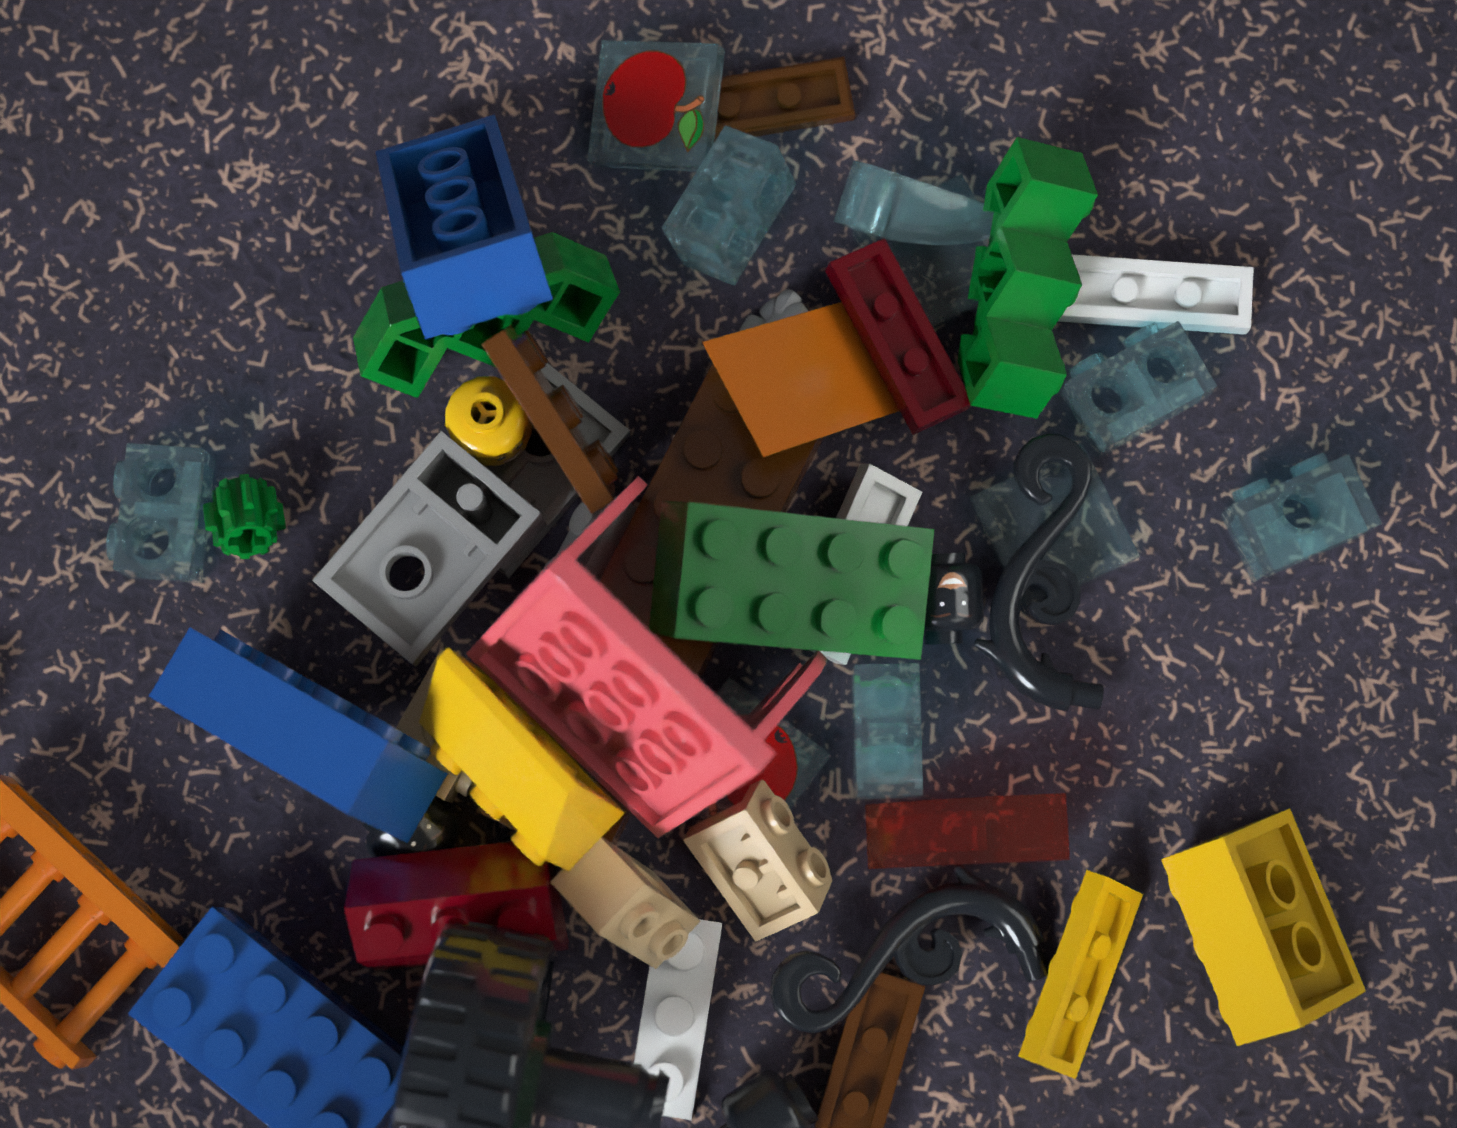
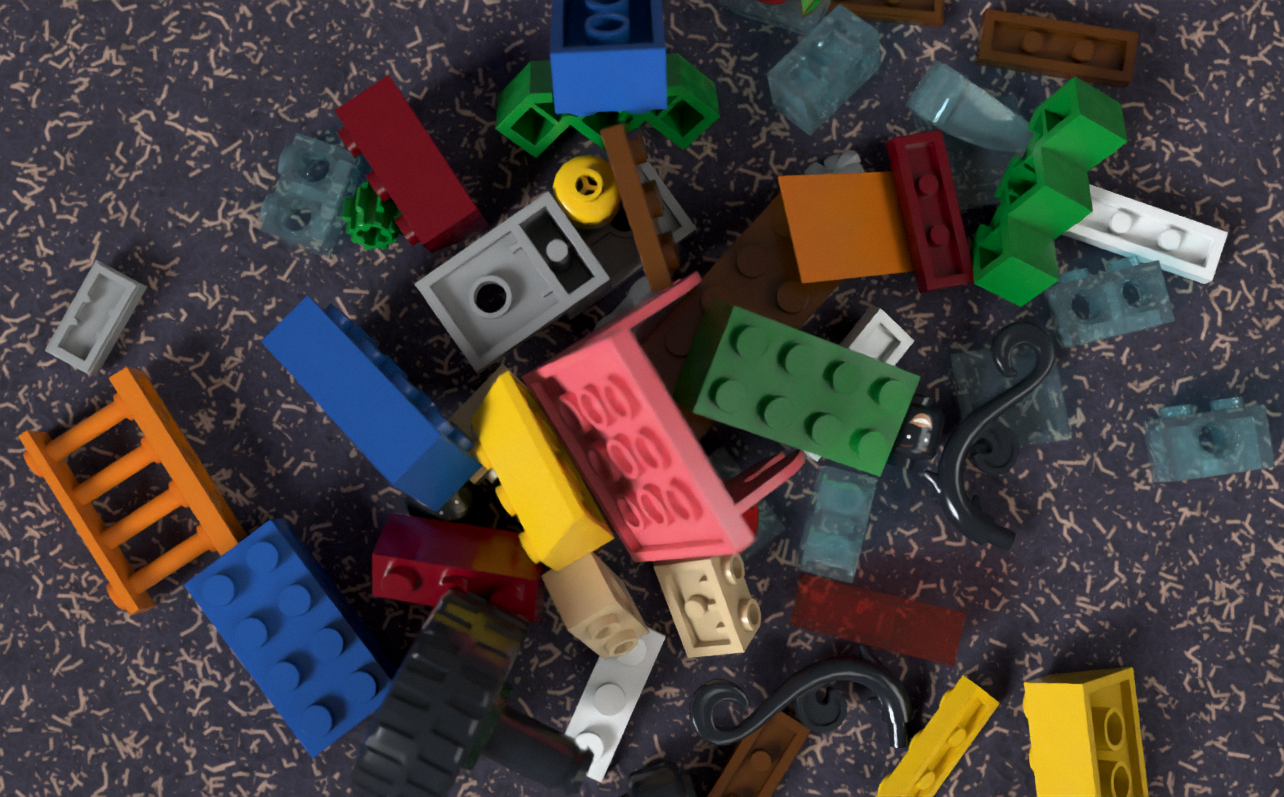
camera: 10 degrees right, 5 degrees up
(271, 449) = (408, 168): none -> dark red slope
(995, 108) = (1056, 48): none -> reddish brown plate

